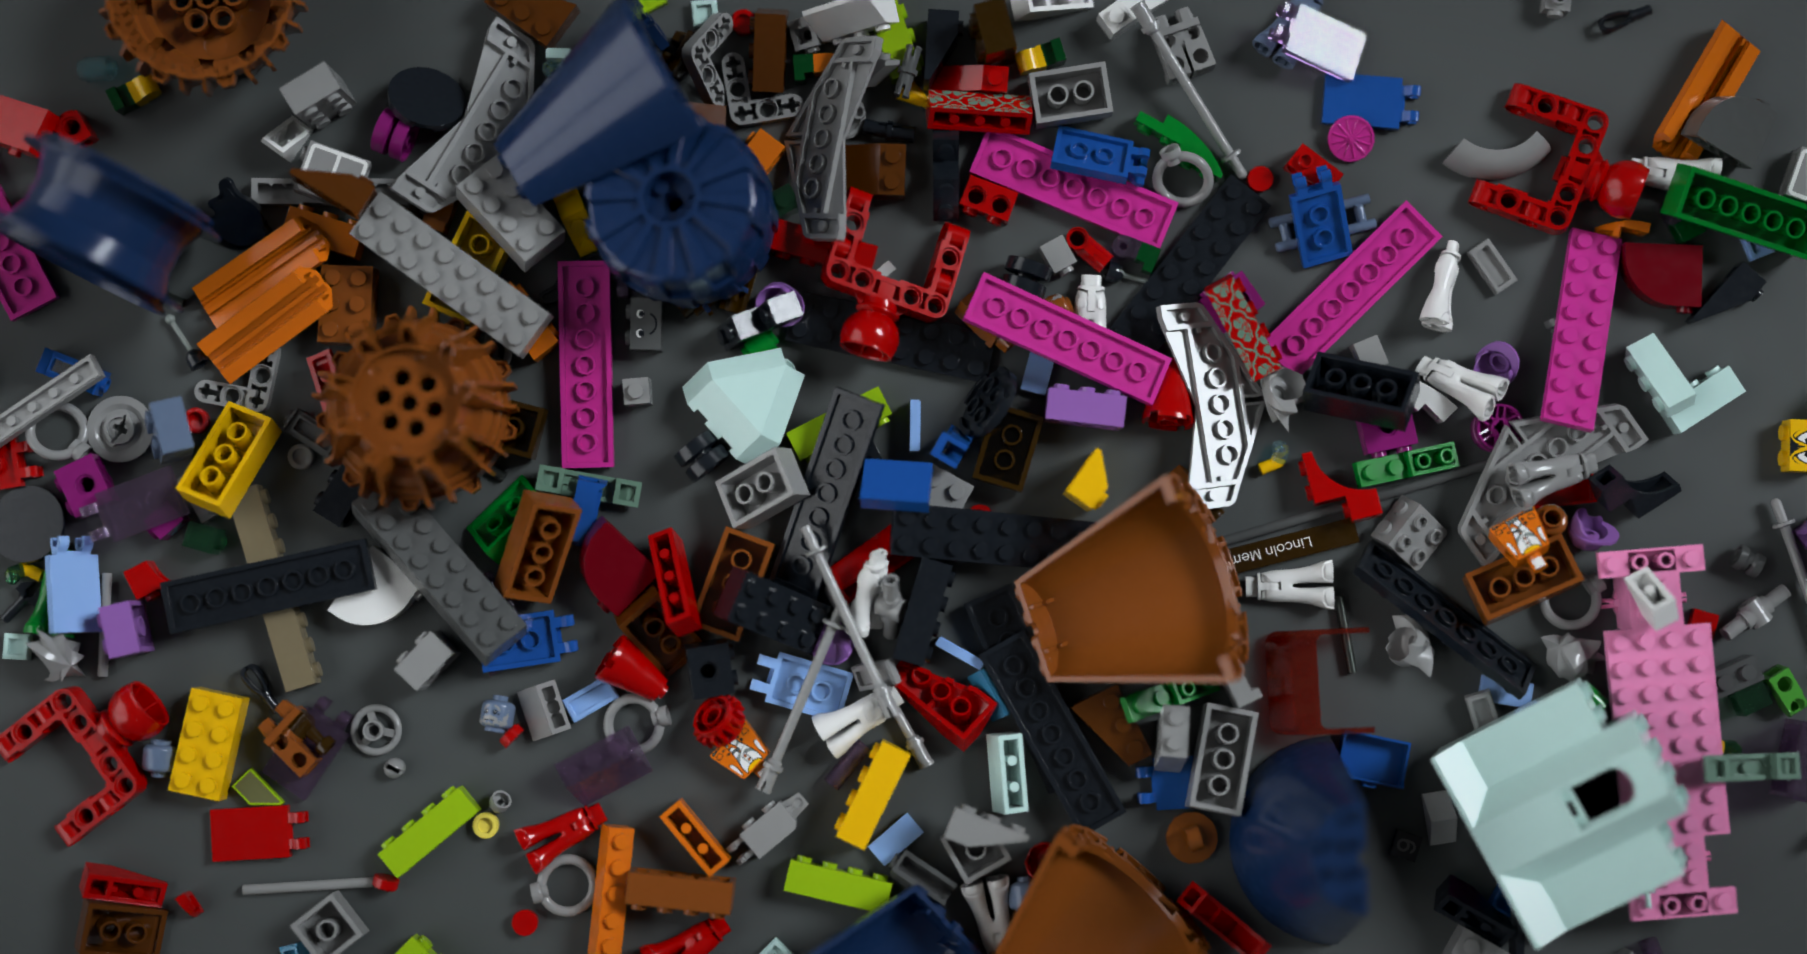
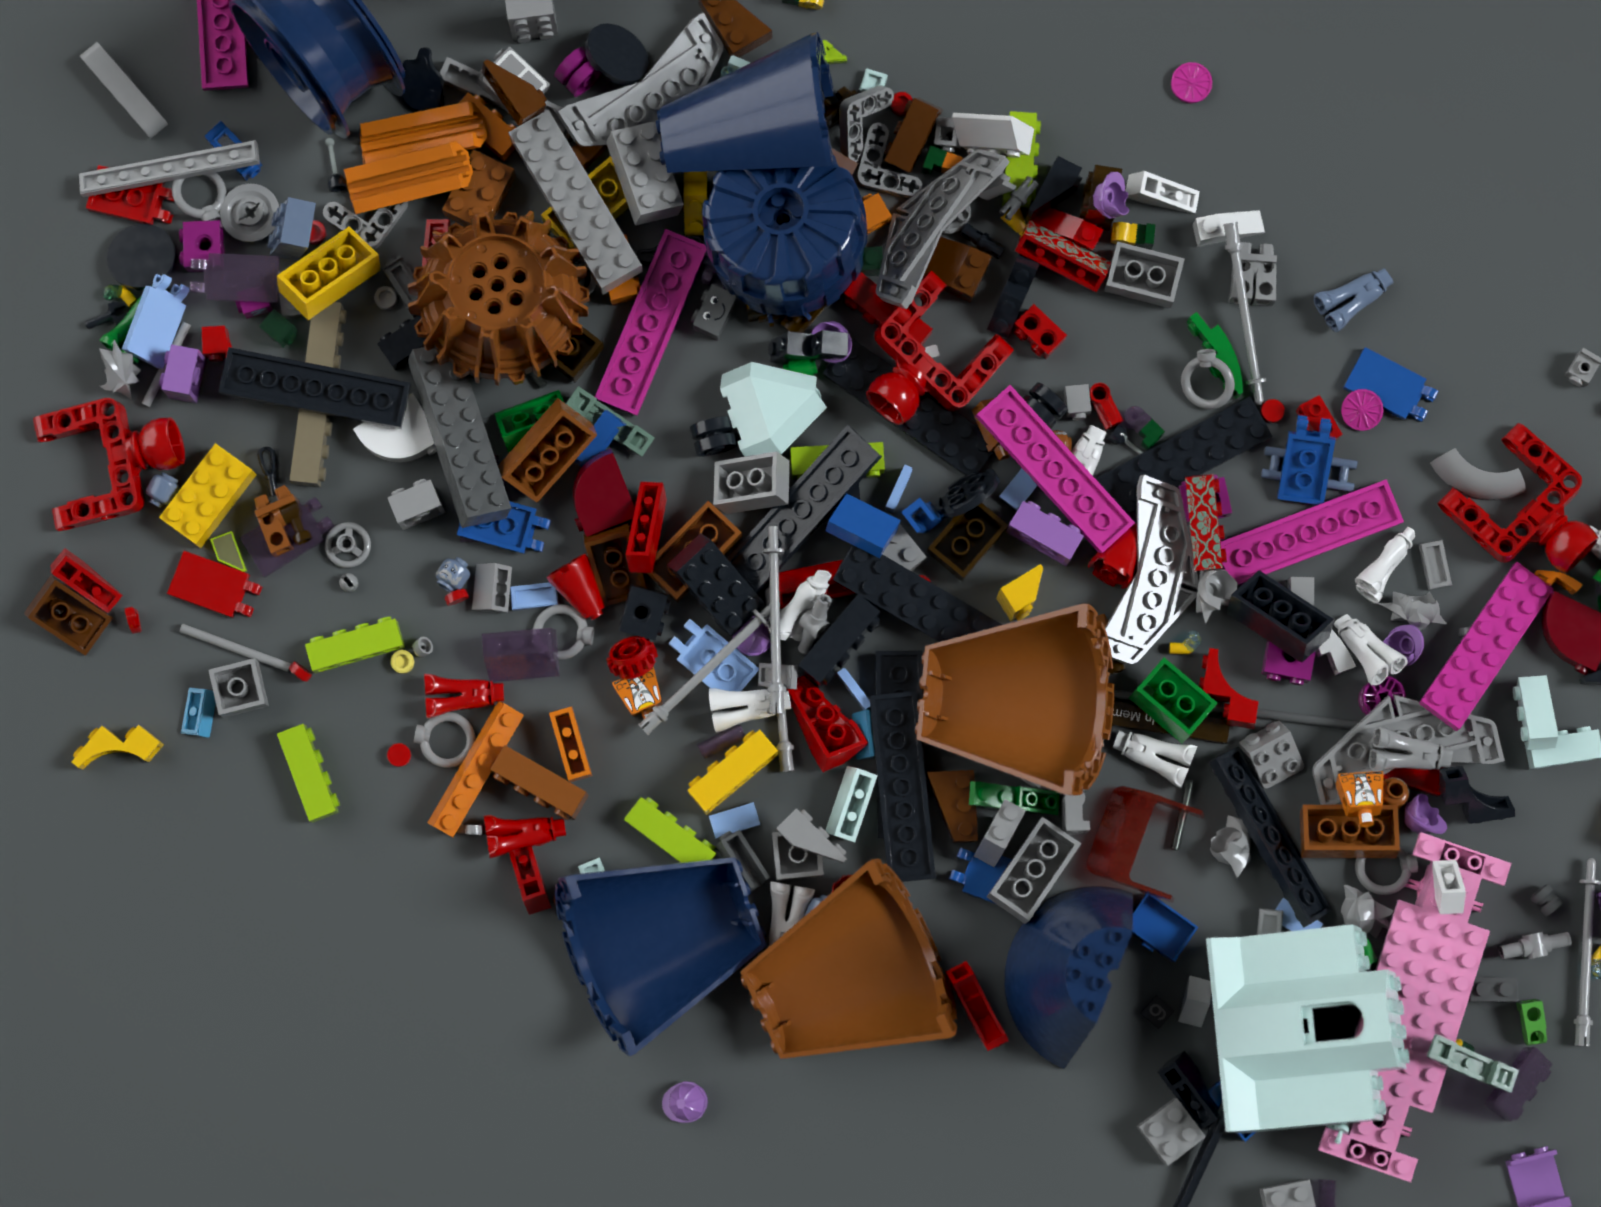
camera: 25 degrees right, 5 degrees down
(15, 647) = (87, 351): light aqua tile -> none
(288, 138) = (490, 38): white slope -> none
(637, 392) = (683, 363): light grey brick -> none
(770, 828) = (634, 765): light grey hinge -> none
(1005, 32) = (1111, 196): none -> medium lavender piece
(1099, 156) = (1146, 334): blue tile -> none
(1107, 204) = (1115, 351): dark pink plate -> none
(1191, 837) = (981, 926): dark orange tile -> none
(1288, 524) = (1173, 700): none -> green slope
(1319, 40) = (1369, 317): tile -> none
(1405, 464) = (1292, 696): green slope -> none
(1491, 322) = (1415, 609): none -> light grey hair
(1700, 616) = (1493, 938): red tile -> none
(1751, 699) = (1500, 1014): clear green brick -> none

